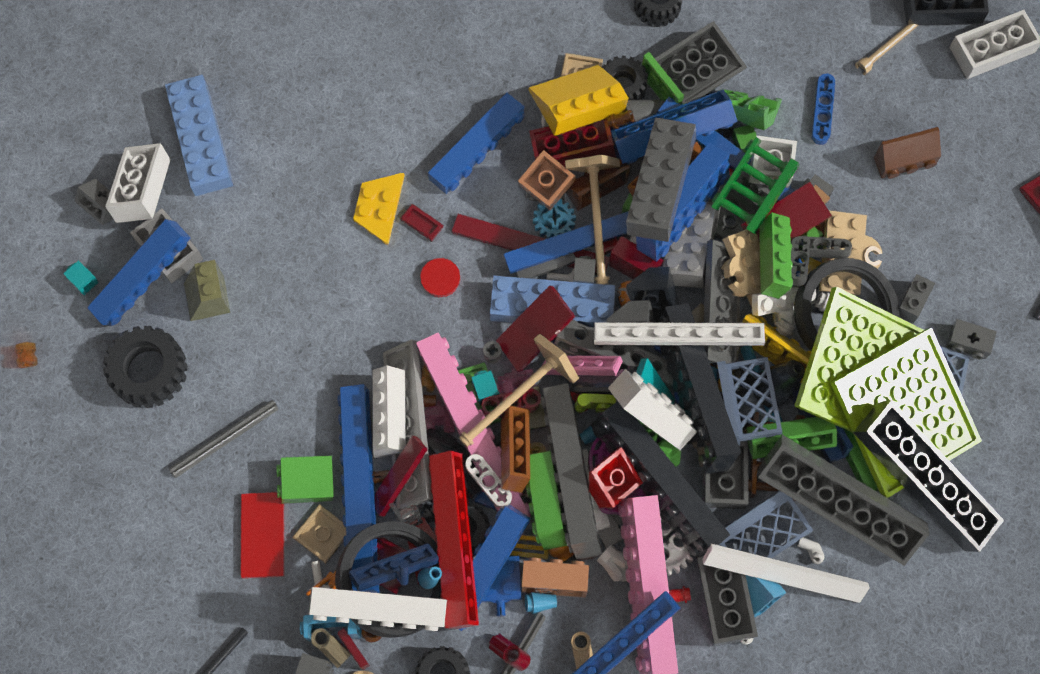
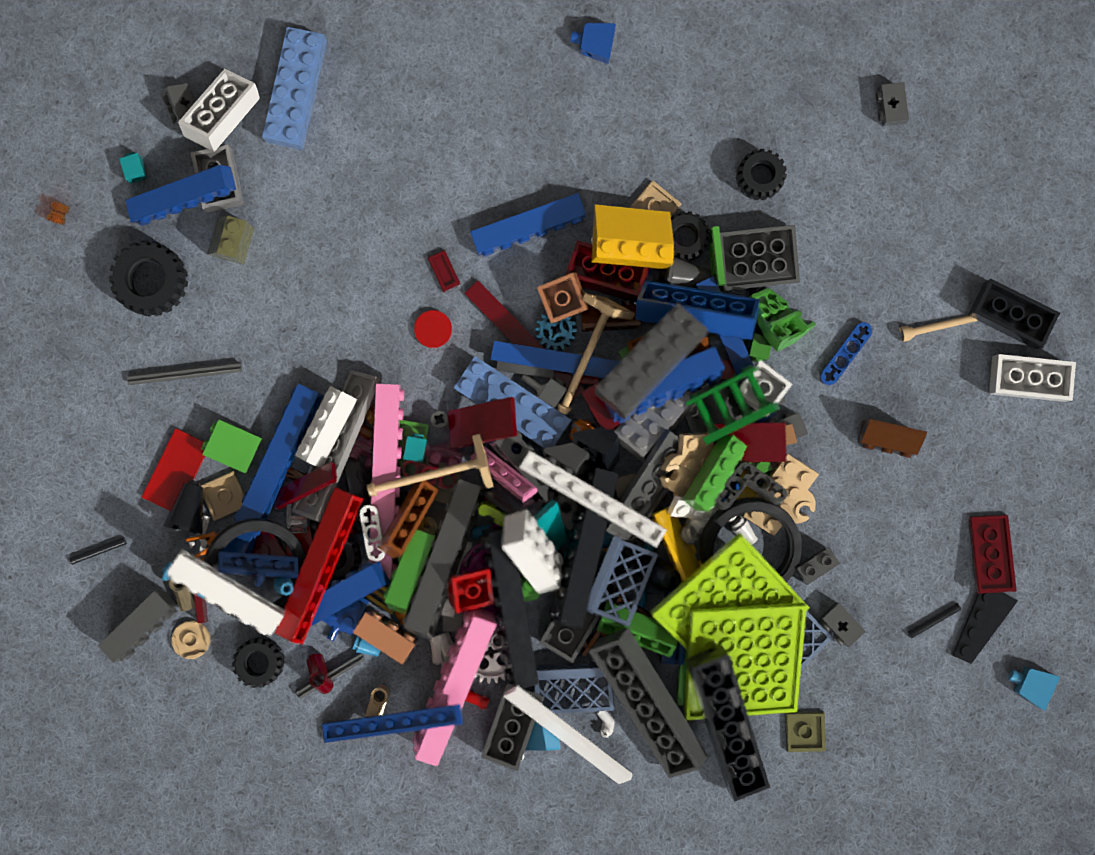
camera: 25 degrees right, 15 degrees up
(294, 563) = (187, 509): none -> black cone
(378, 205) = (415, 235): yellow wing -> none
(615, 121) = (653, 274): reddish brown pin -> none
(1000, 456) = (805, 732): none -> olive tile

